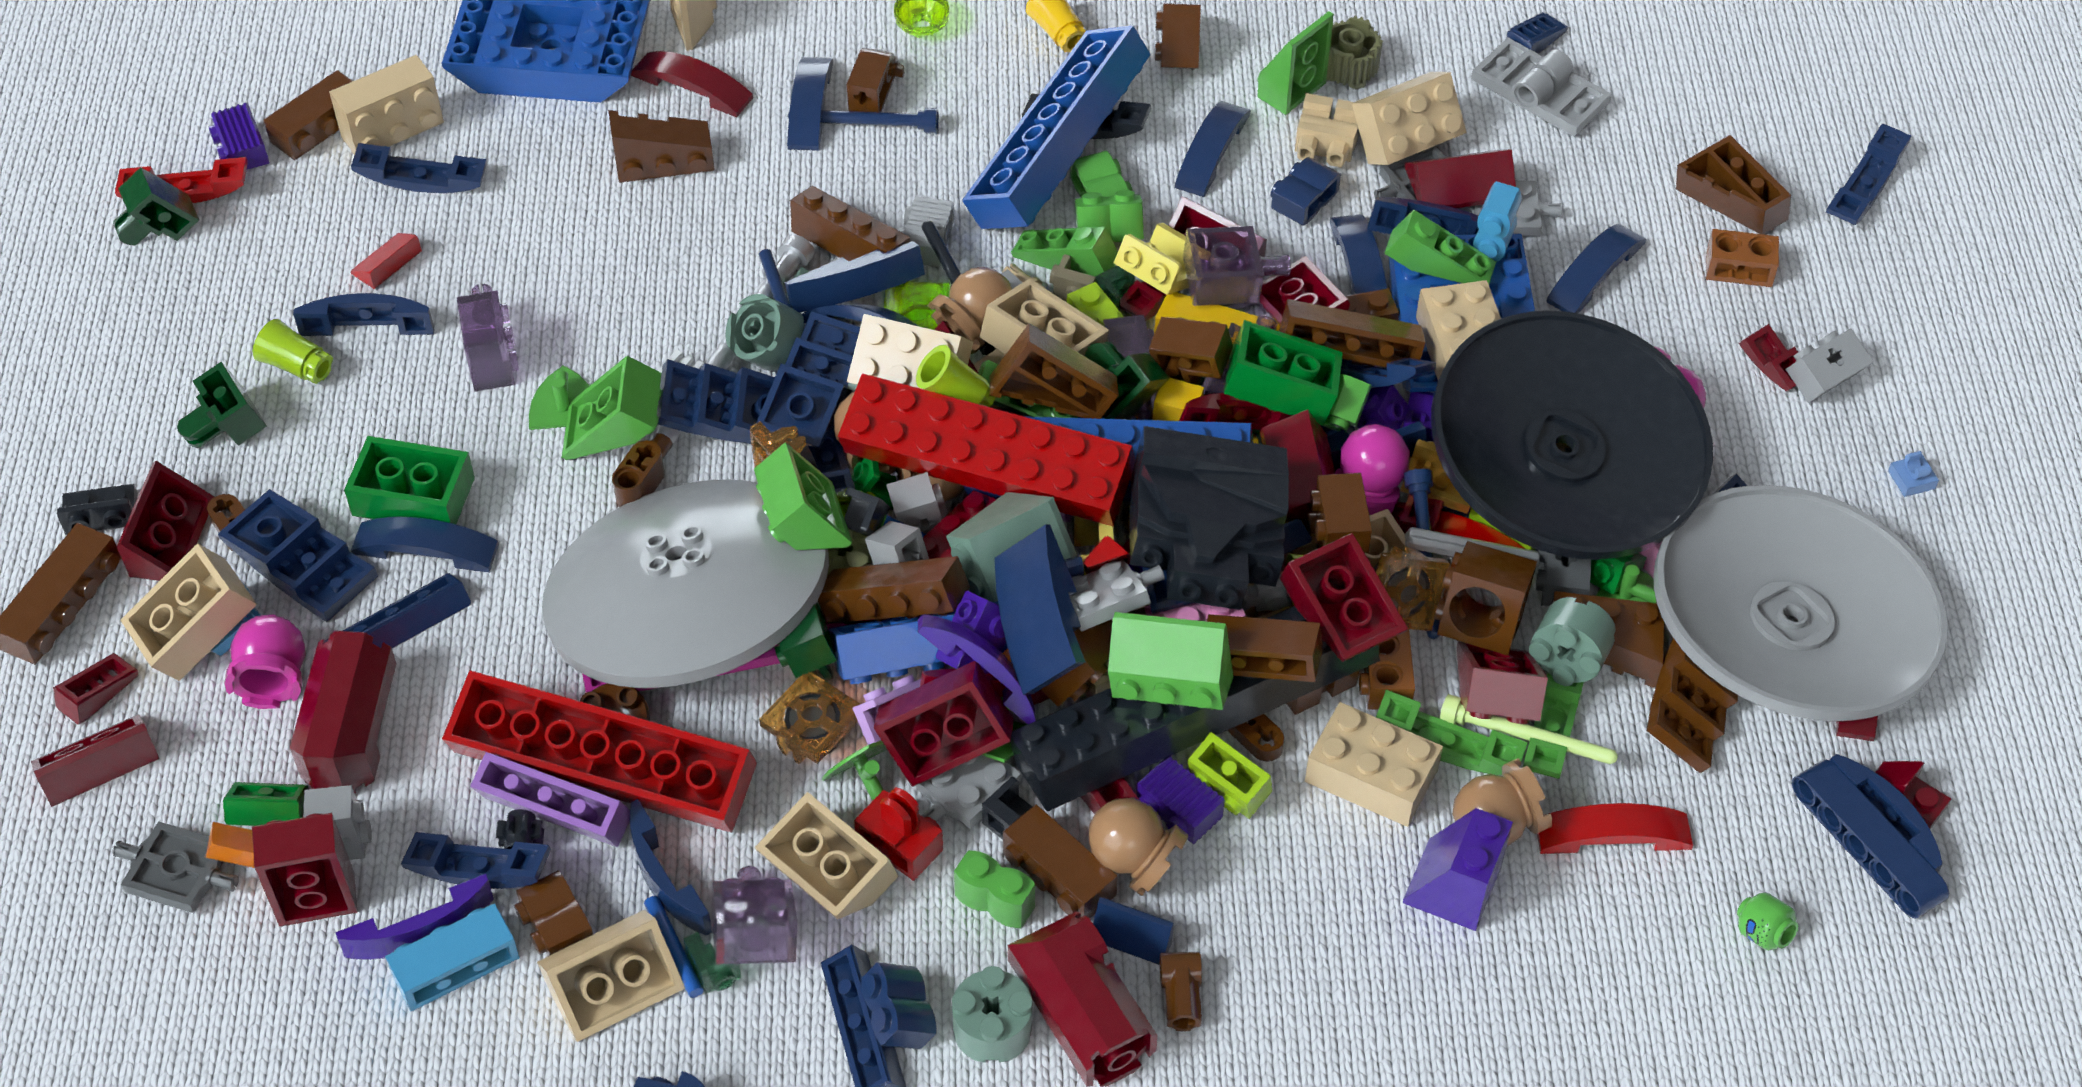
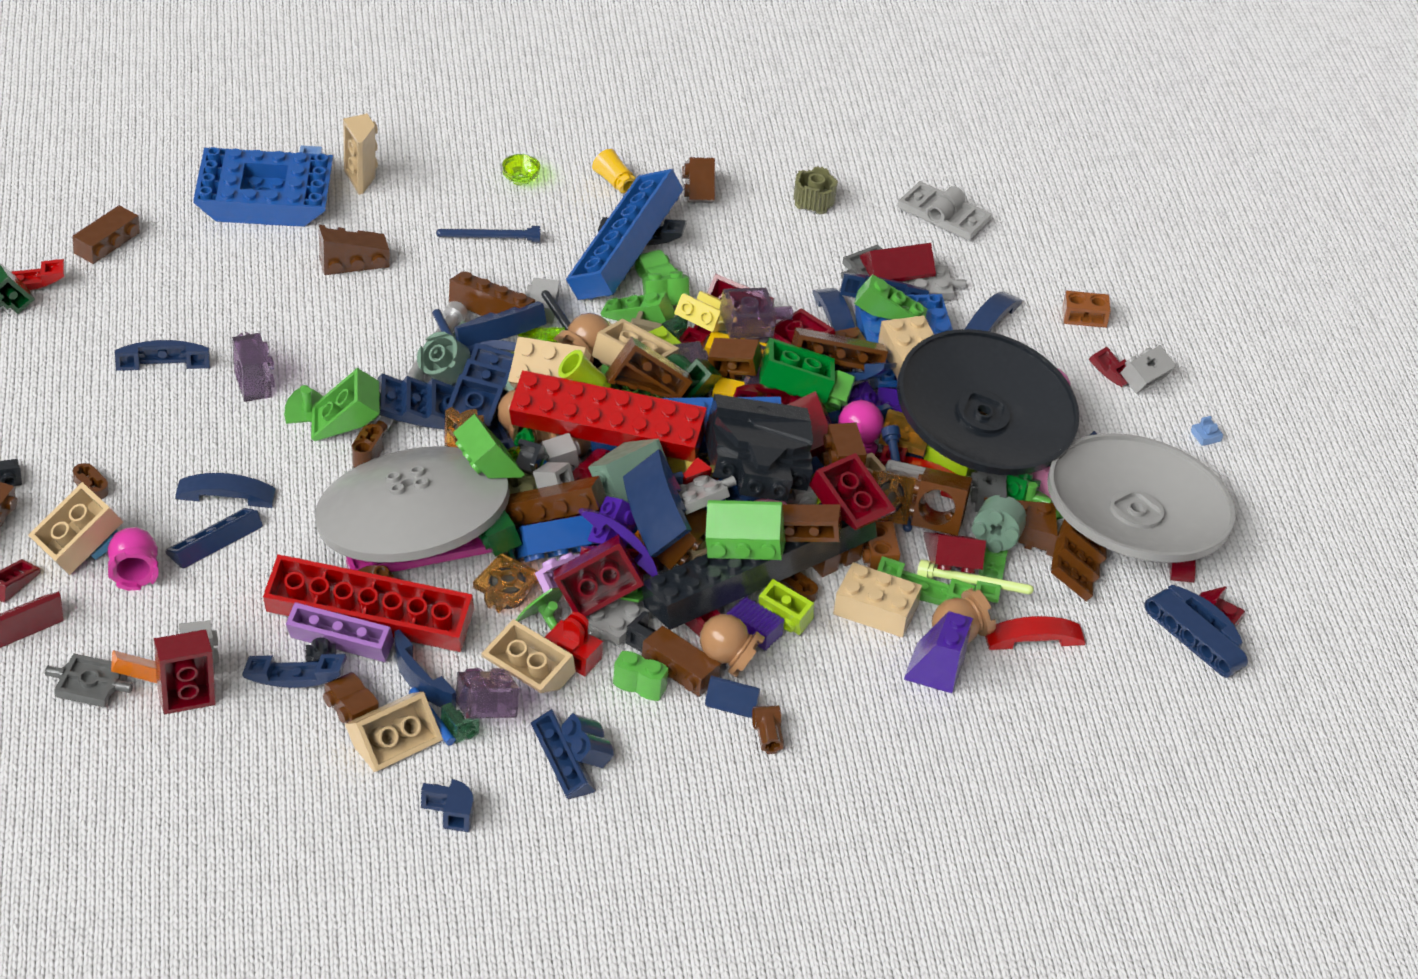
camera: 10 degrees left, 10 degrees down
(163, 523) = (44, 481): dark red slope -> none
(223, 408) = (74, 411): dark green brick -> none
(238, 135) = (53, 245): dark purple brick -> none
(263, 802) = (138, 643): green slope -> none
(291, 352) = (116, 378): lime plant -> none
(298, 555) = (141, 498): dark blue slope -> none
(343, 711) = (190, 581): dark red brick -> none
(369, 943) = (232, 718): dark purple slope -> none
(387, 105) = (158, 227): tan brick -> none
(387, 259) = (171, 322): red slope -> none
(409, 481) = (211, 450): green brick -> none
(415, 174) = (183, 271): dark blue slope -> none
(452, 956) = (286, 724): dark azure brick -> none
(694, 75) = (368, 207): dark red slope -> none
(808, 103) = (449, 225): dark blue slope -> none
(872, 80) = (492, 209): reddish brown piece -> none
(992, 1015) = (648, 744): sand green brick -> none
(1083, 999) = (707, 731): dark red brick -> none
(1209, 147) = (726, 248): dark blue slope -> none
(1297, 67) = (782, 197): bright green slope -> none
(1305, 190) = (794, 273): dark blue brick -> none
(1326, 136) = (805, 241): tan hips -> none
(1409, 118) = (860, 227): tan brick -> none
(1497, 220) = (927, 281): dark azure brick -> none
(1535, 38) = (939, 178): dark blue slope -> none
(1735, 186) = (1077, 266): reddish brown wedge -> none
(1767, 921) = (1136, 679): bright green head -> none
(1870, 175) = (1165, 260): dark blue slope -> none

